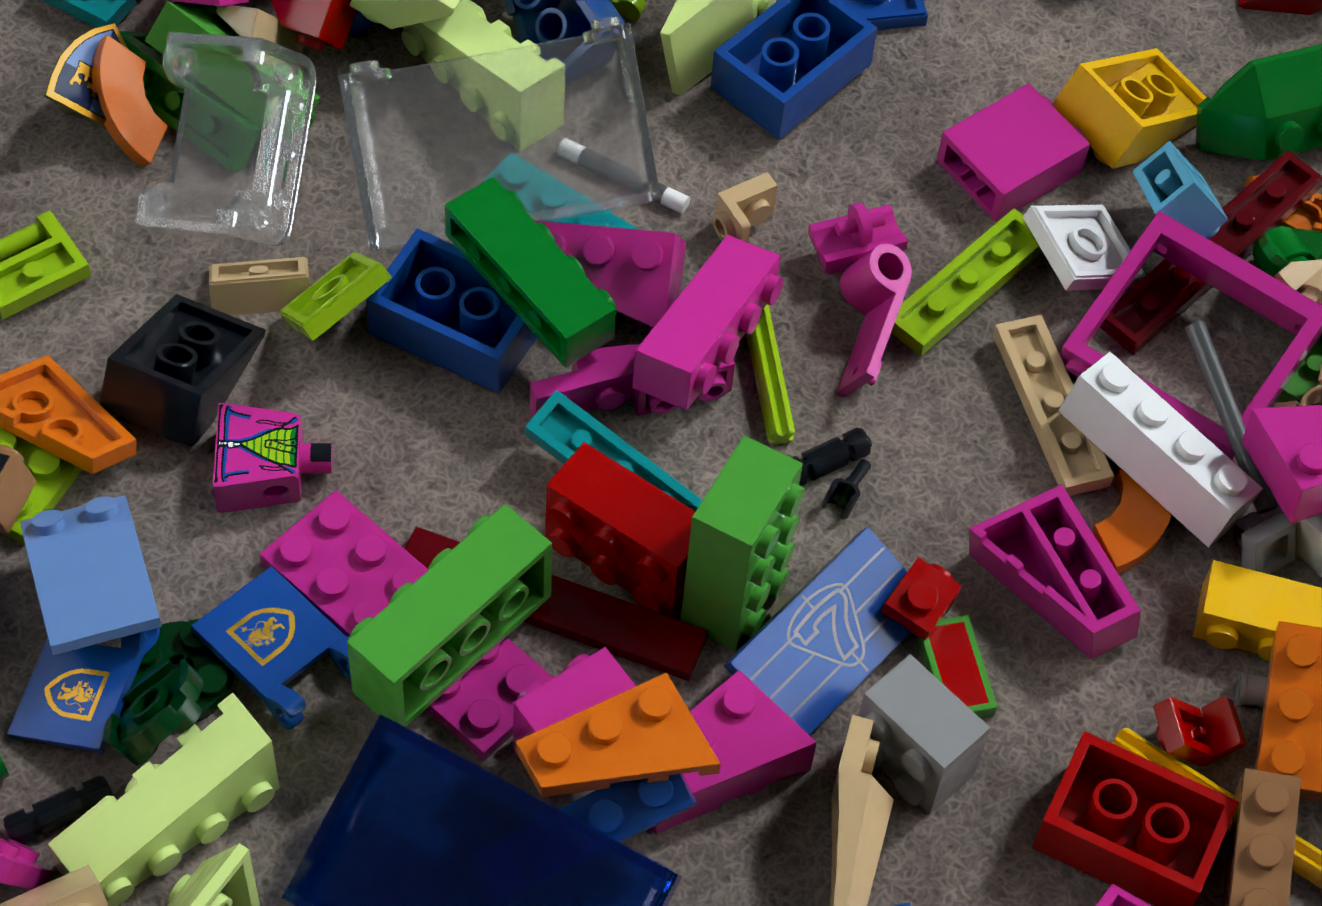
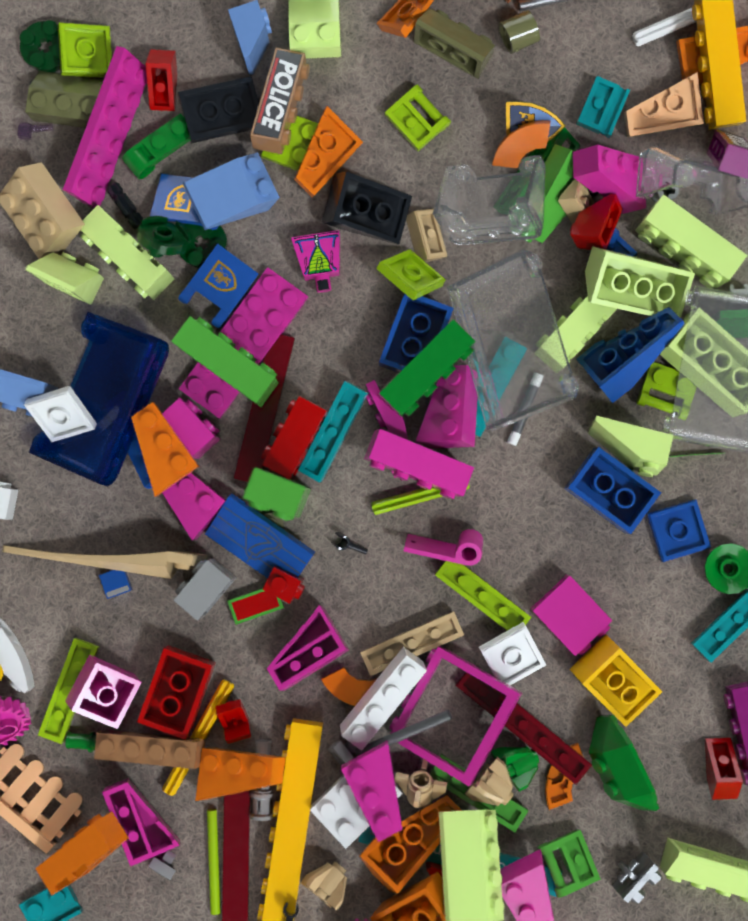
camera: 90 degrees right, 30 degrees up
(744, 207) = (511, 475): tan bracket -> none
(834, 454) = (364, 531): black axle -> none
(851, 236) = (496, 535): dark pink hips -> none
(1179, 191) = (545, 705): medium azure brick -> none

